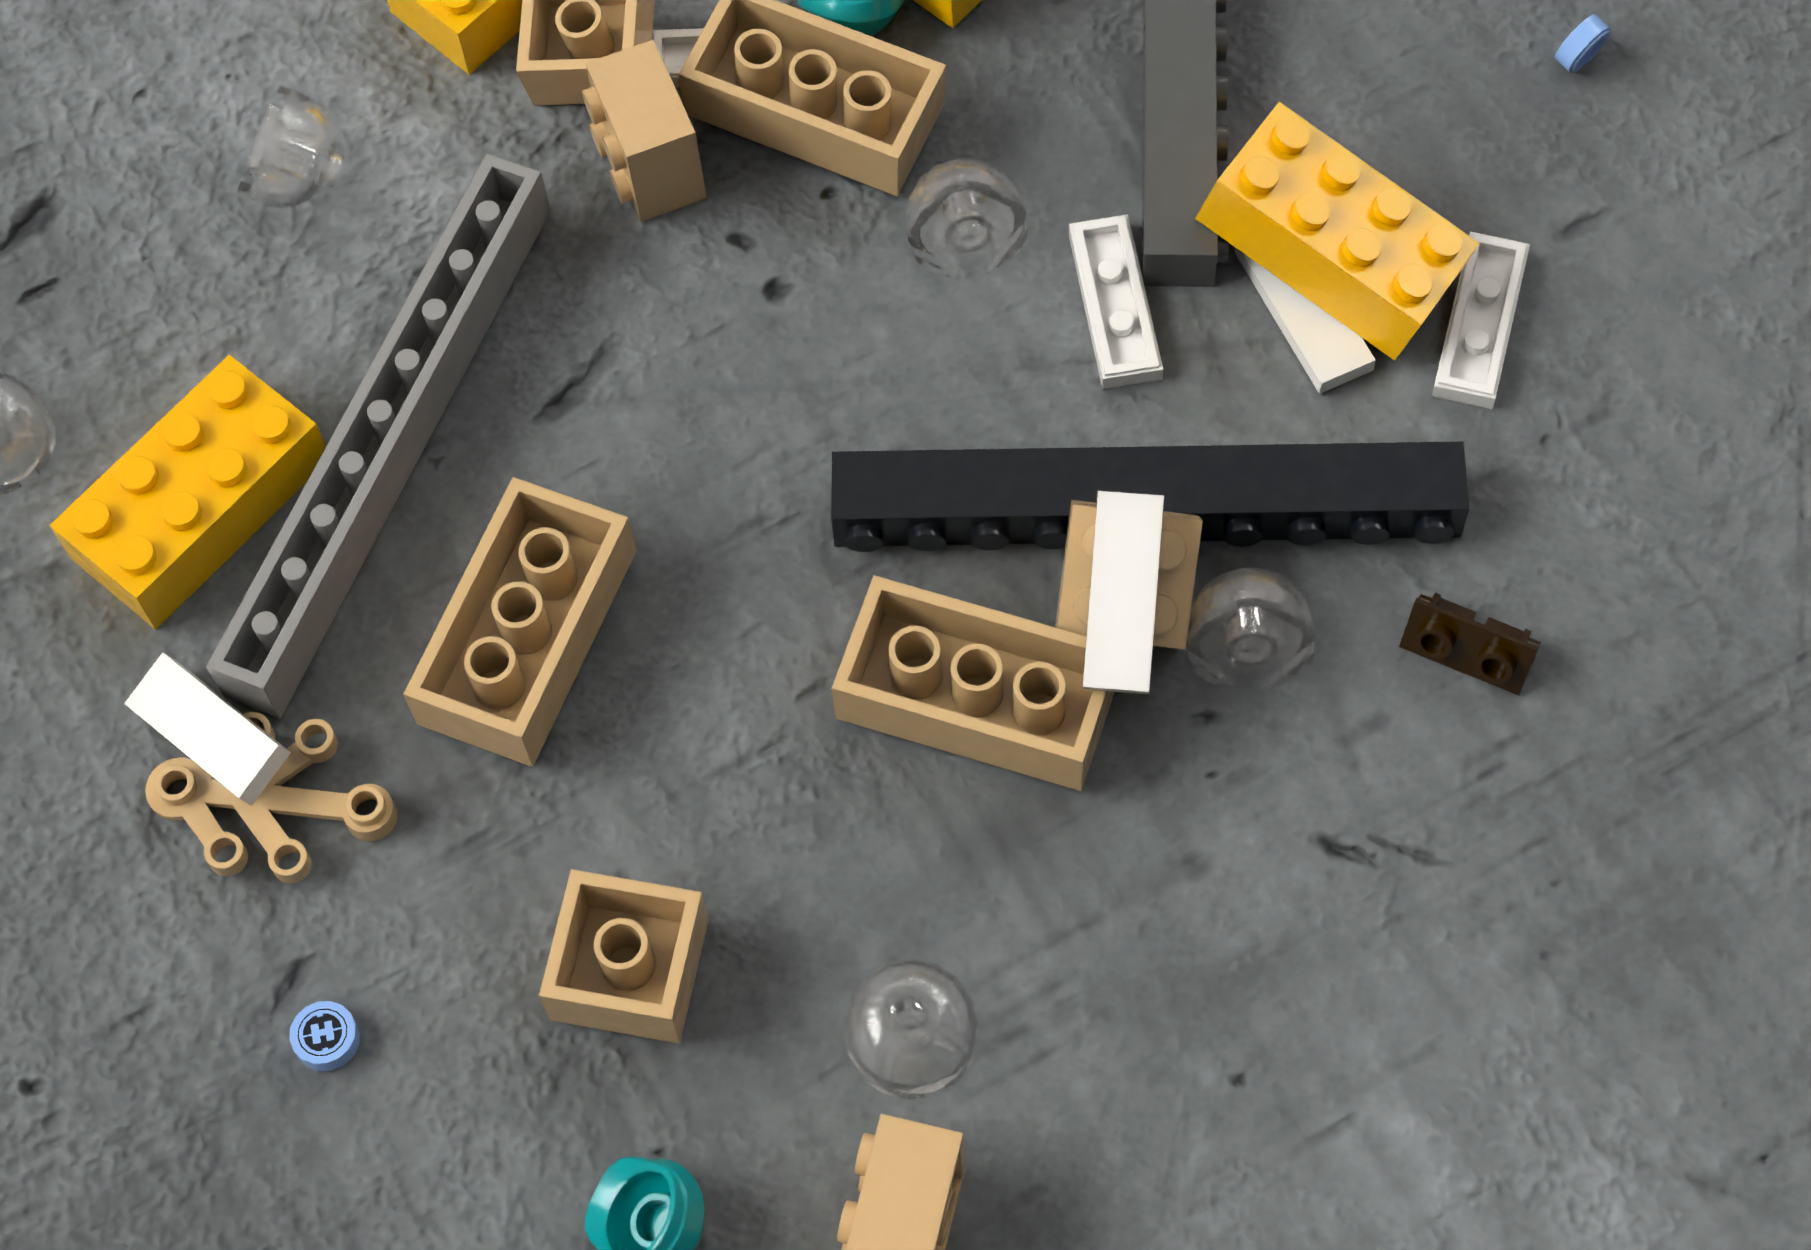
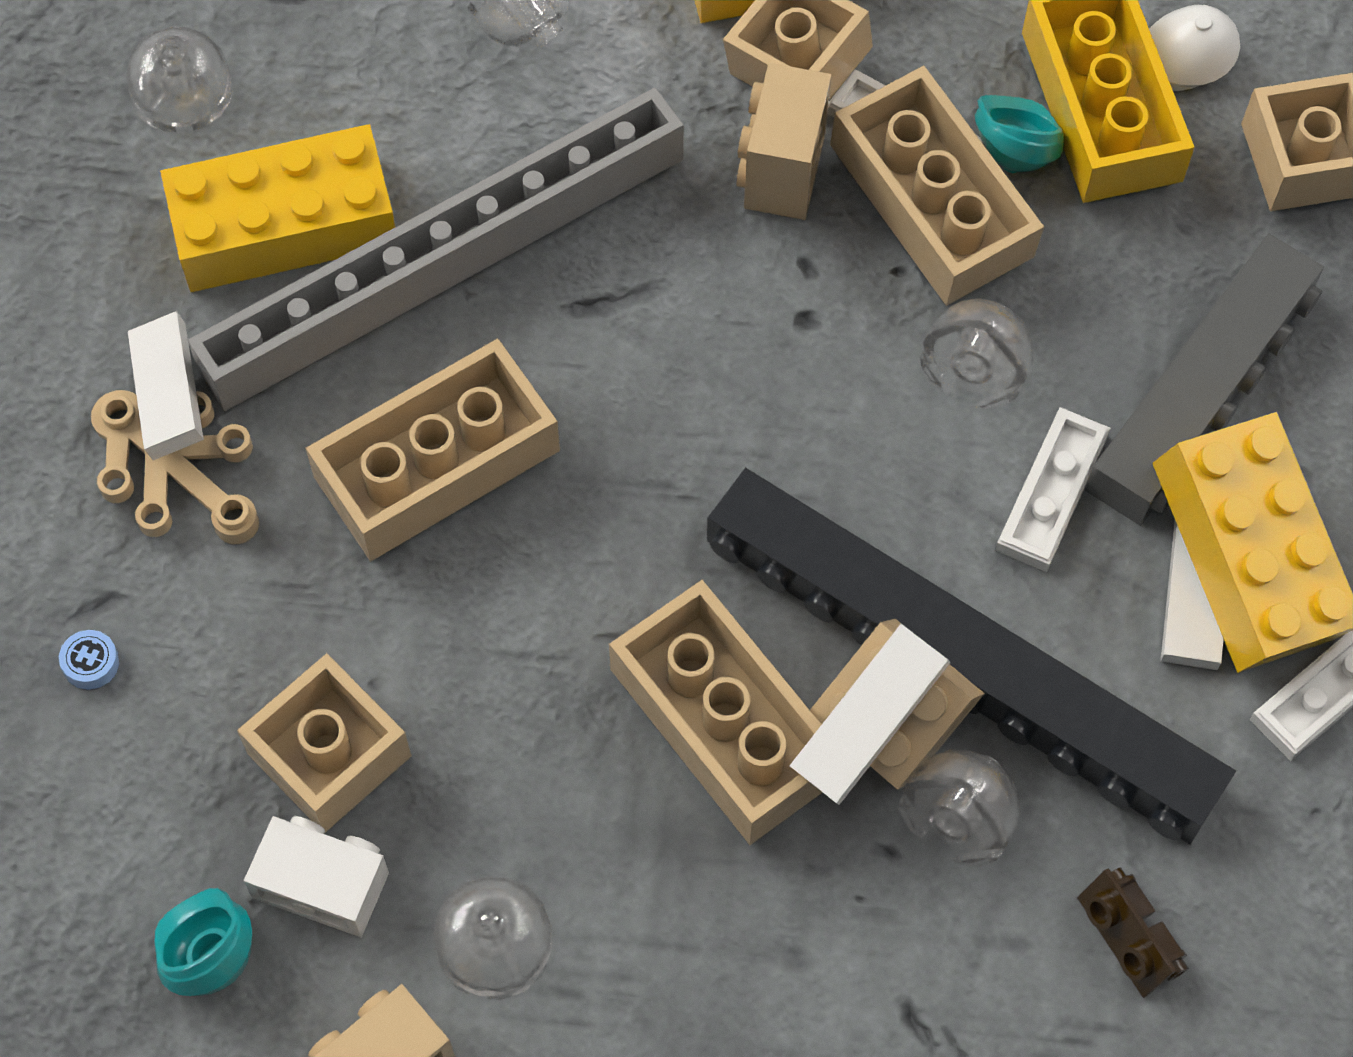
camera: 30 degrees right, 0 degrees up
(706, 1082) = (317, 874): none -> white brick

